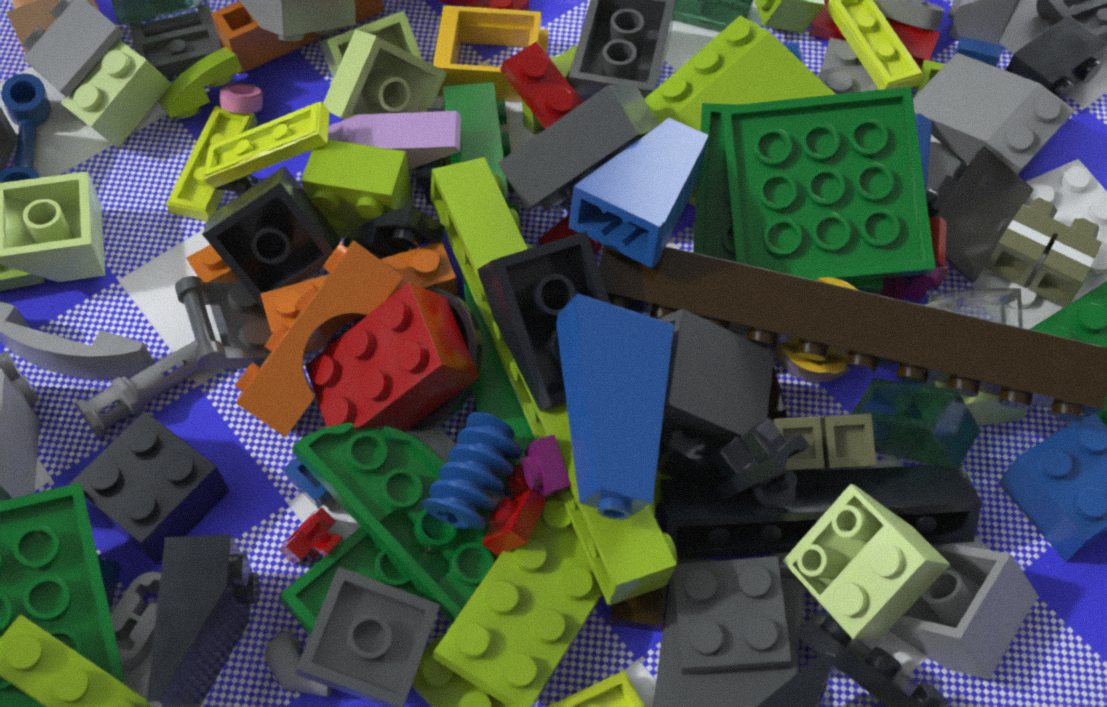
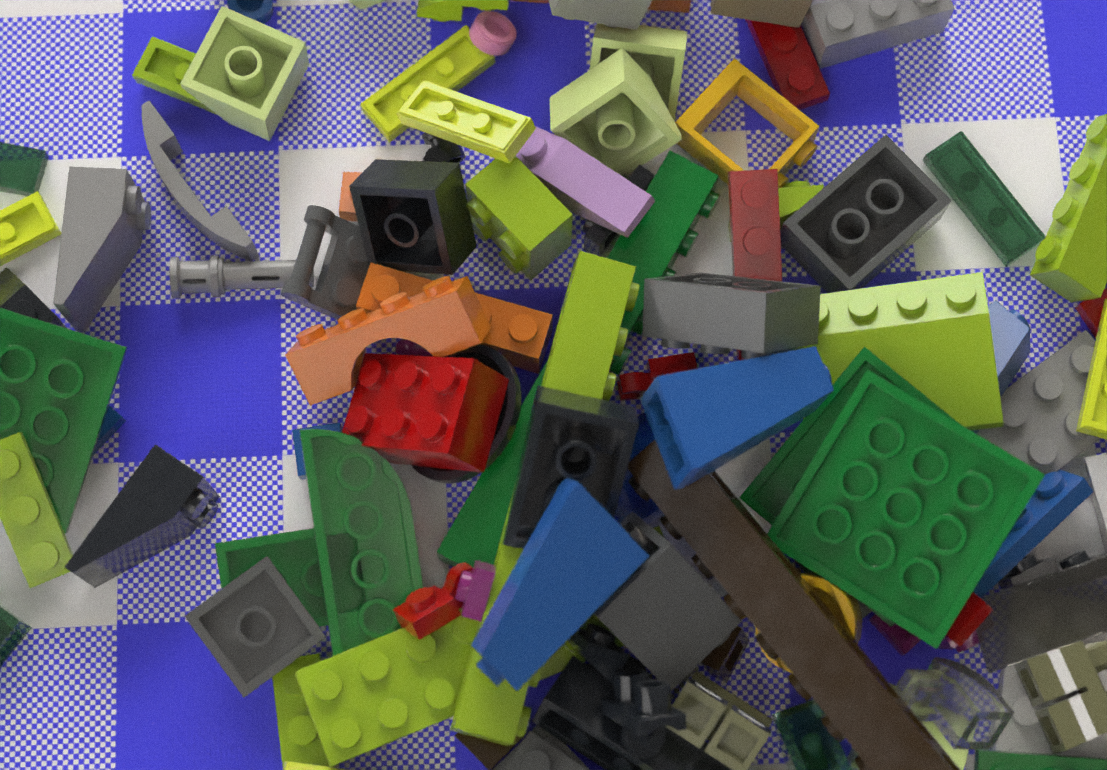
camera: 35 degrees right, 15 degrees up
(136, 619) = (104, 468): light grey beam -> none
(151, 485) = (183, 374): black brick -> none
(283, 659) = (194, 587): light grey arm -> none
(311, 538) = (274, 506): red plate -> none
(396, 232) = (516, 280): black slope -> none
(473, 472) = (421, 553): blue piece -> none

